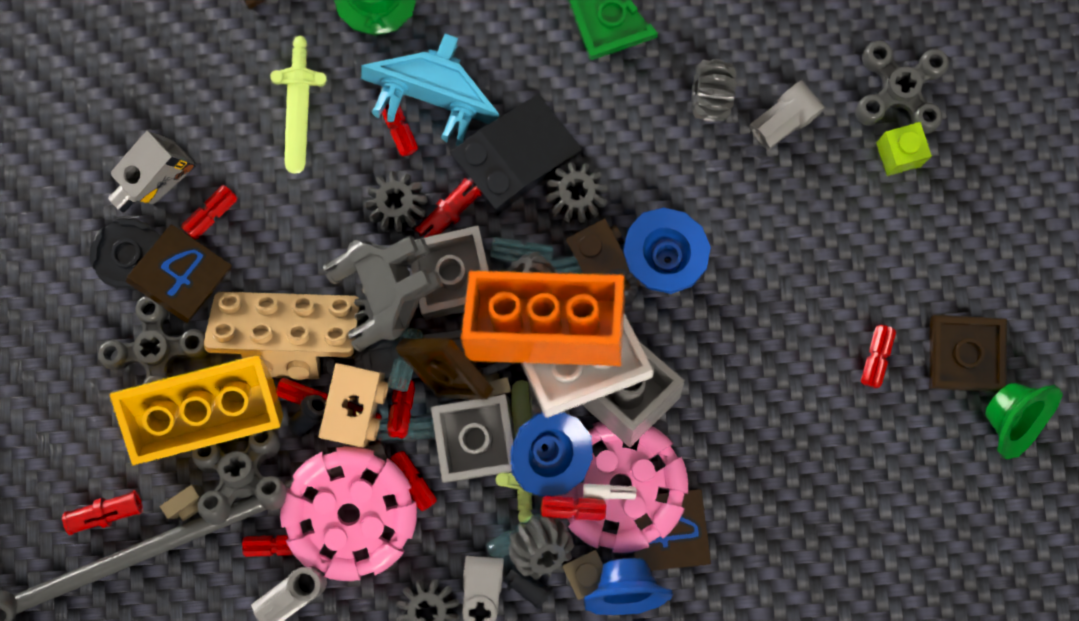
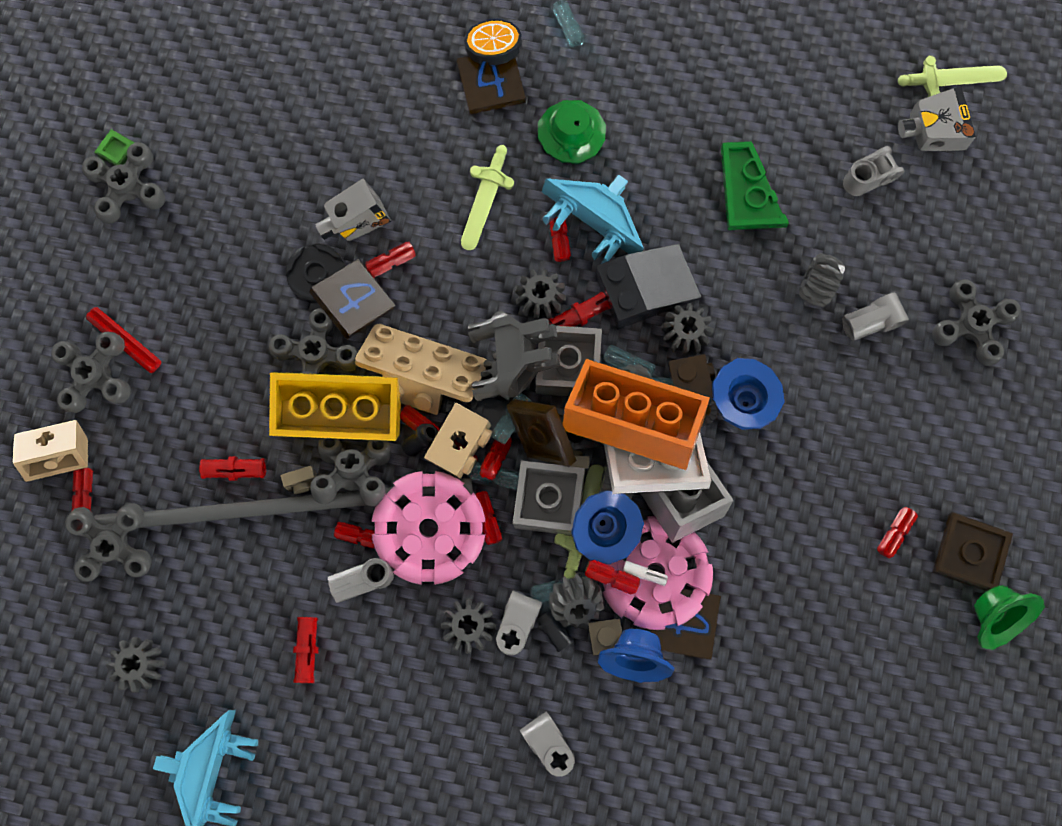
camera: 15 degrees right, 5 degrees down
(903, 149) = (964, 371): lime brick -> none

